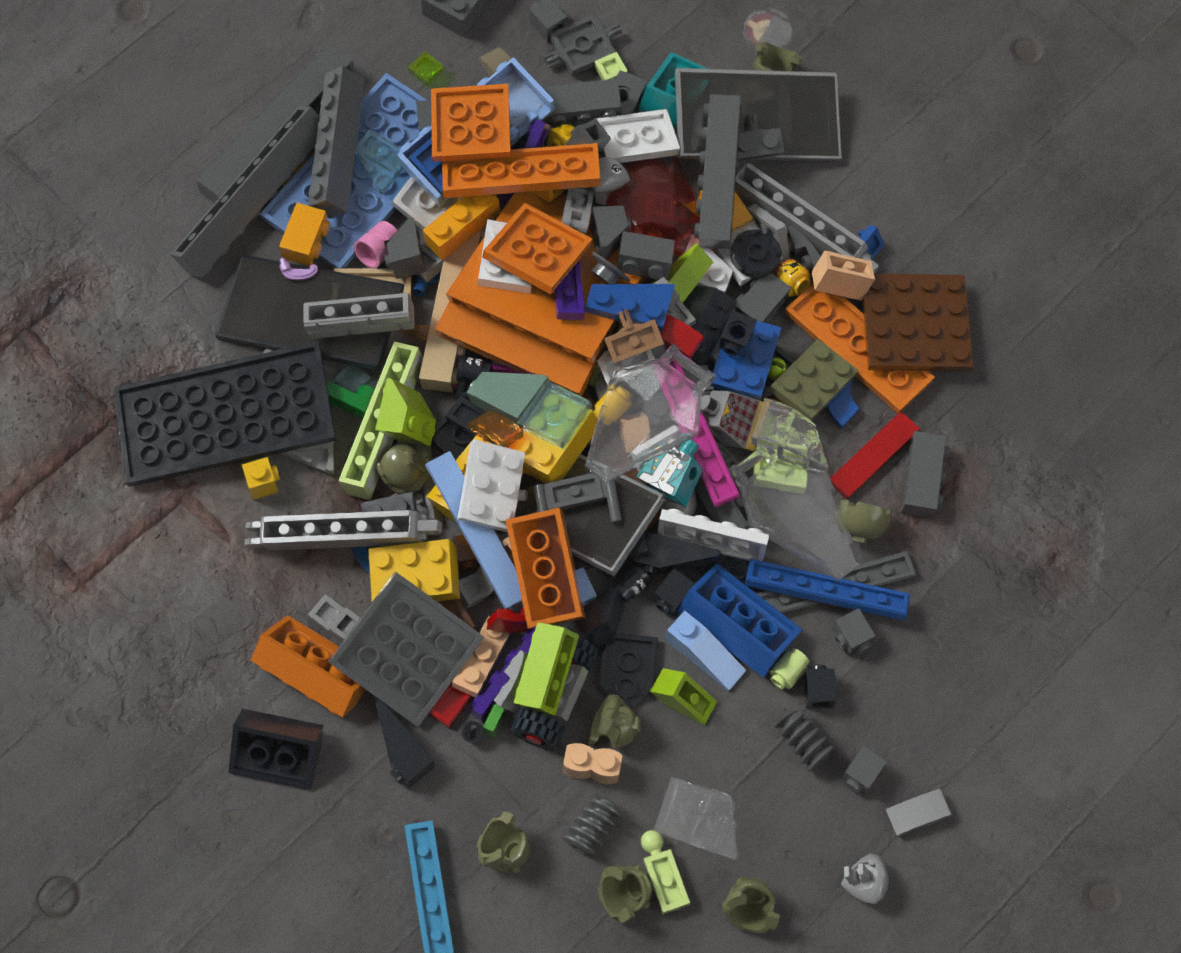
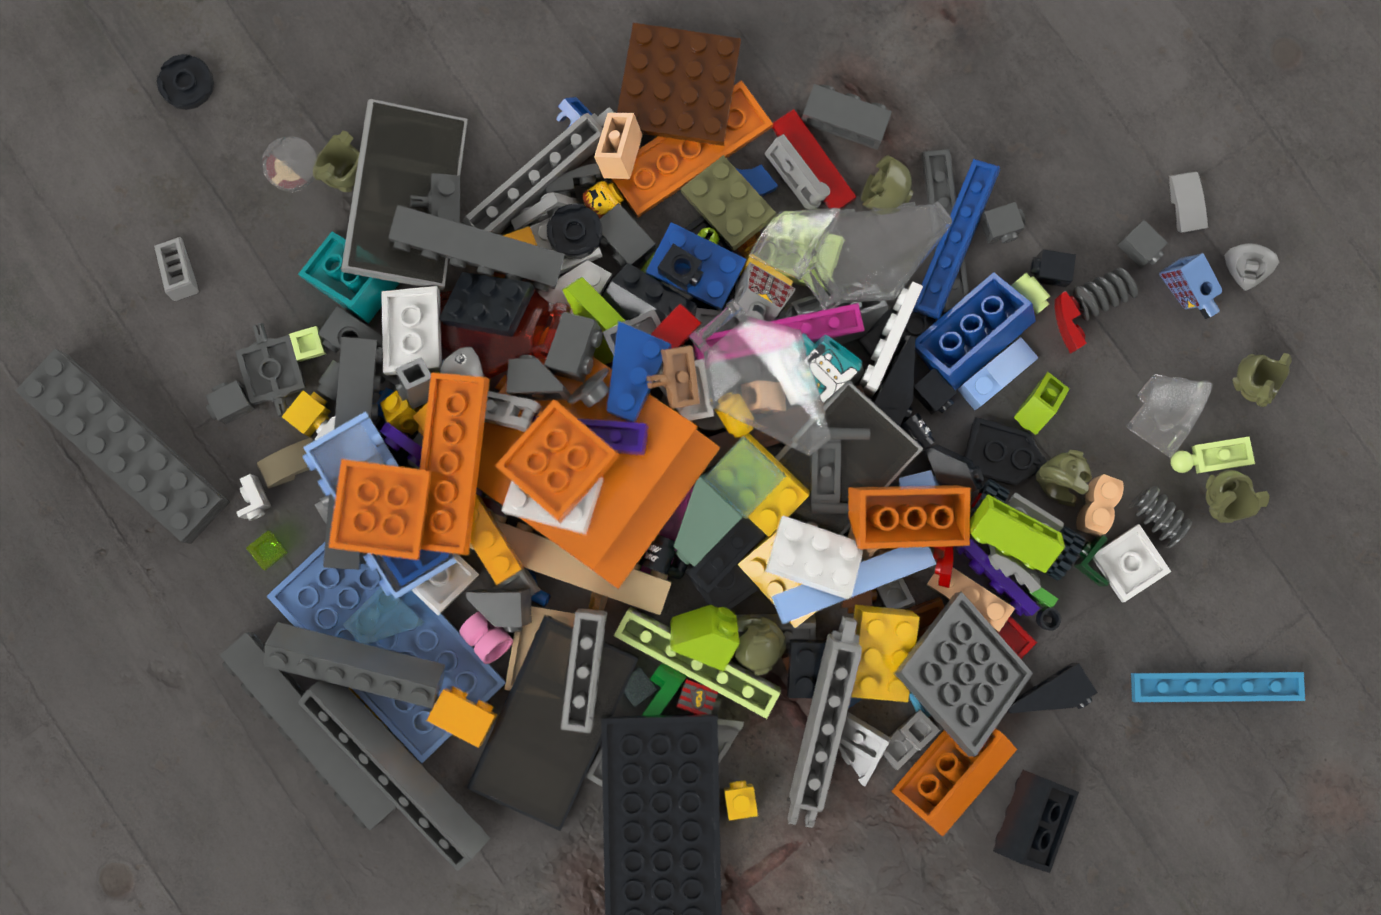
camera: 85 degrees left, 15 degrees up
(297, 274) = (508, 731): lavender piece -> none
(327, 575) = (862, 746): none -> light grey wing
(347, 426) = (698, 698): none -> brick
(470, 51) = (254, 493): none -> white bracket
(497, 428) = (742, 542): clear orange slope -> none
(503, 845) = (1171, 608): olive helmet -> none
(541, 759) = (1087, 553): none -> dark green bracket
(541, 804) = (1130, 563): none -> white plate
(550, 73) = (307, 413): none -> yellow brick
(671, 187) = (487, 304): none -> black plate
(776, 706) = (1066, 311): none -> red slope
(840, 814) = (1193, 284): none -> medium blue torso
(857, 439) = (796, 173): none -> light grey plate

